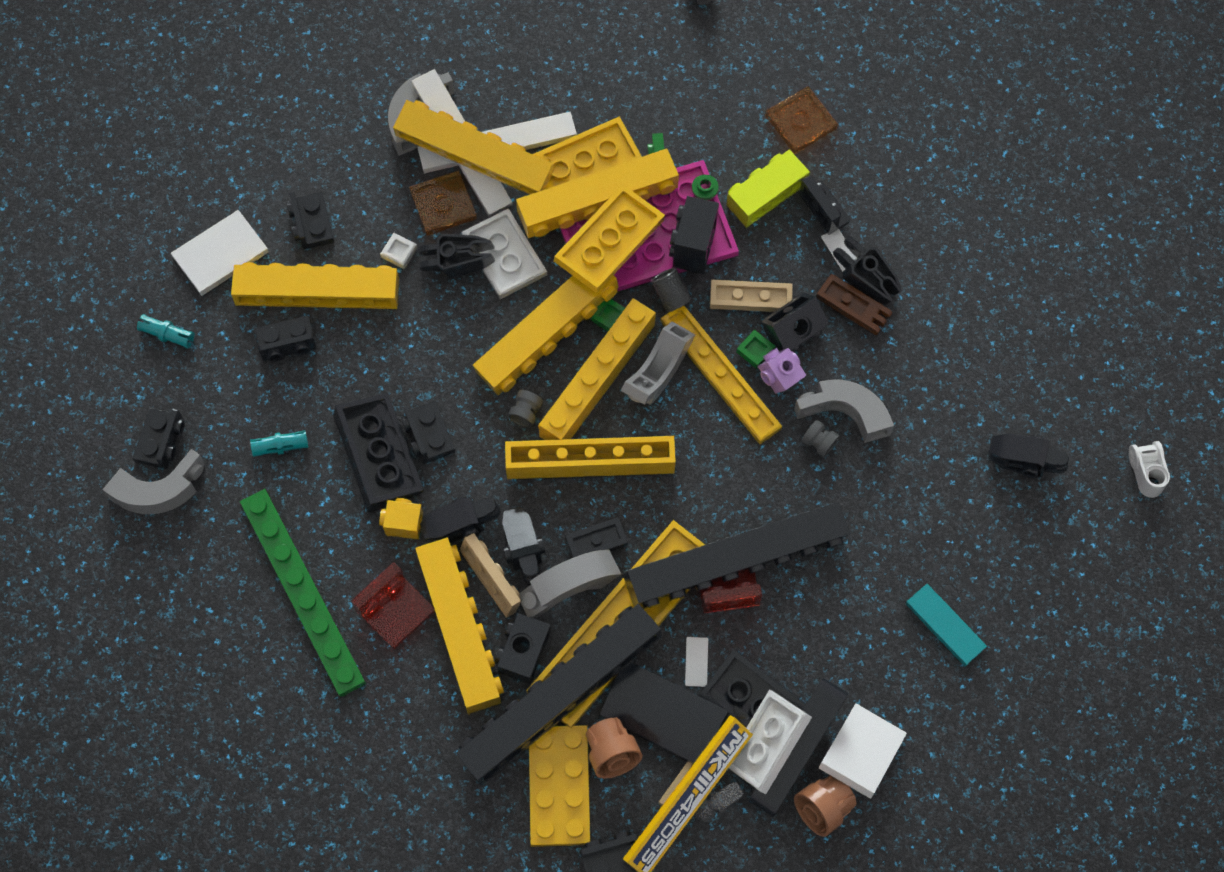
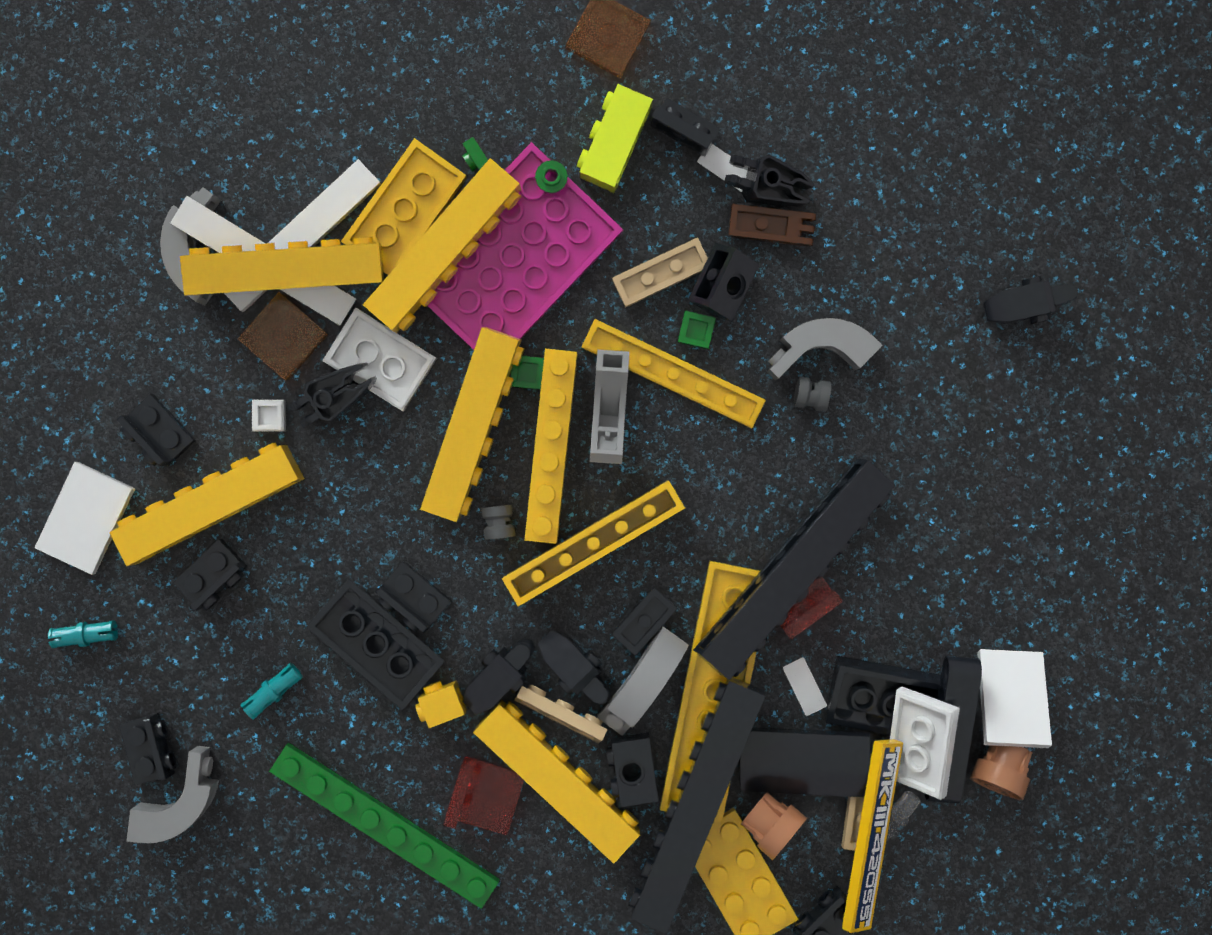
camera: 30 degrees left, 20 degrees up
(609, 238) = (487, 301): yellow plate -> none
(671, 289) = (577, 313): dark grey piece -> none
(693, 234) = (574, 244): black brick -> none
(781, 369) = (736, 342): lavender brick -> none
(946, 625) = (1028, 521): teal tile -> none
(1149, 462) = (1153, 246): white piece -> none

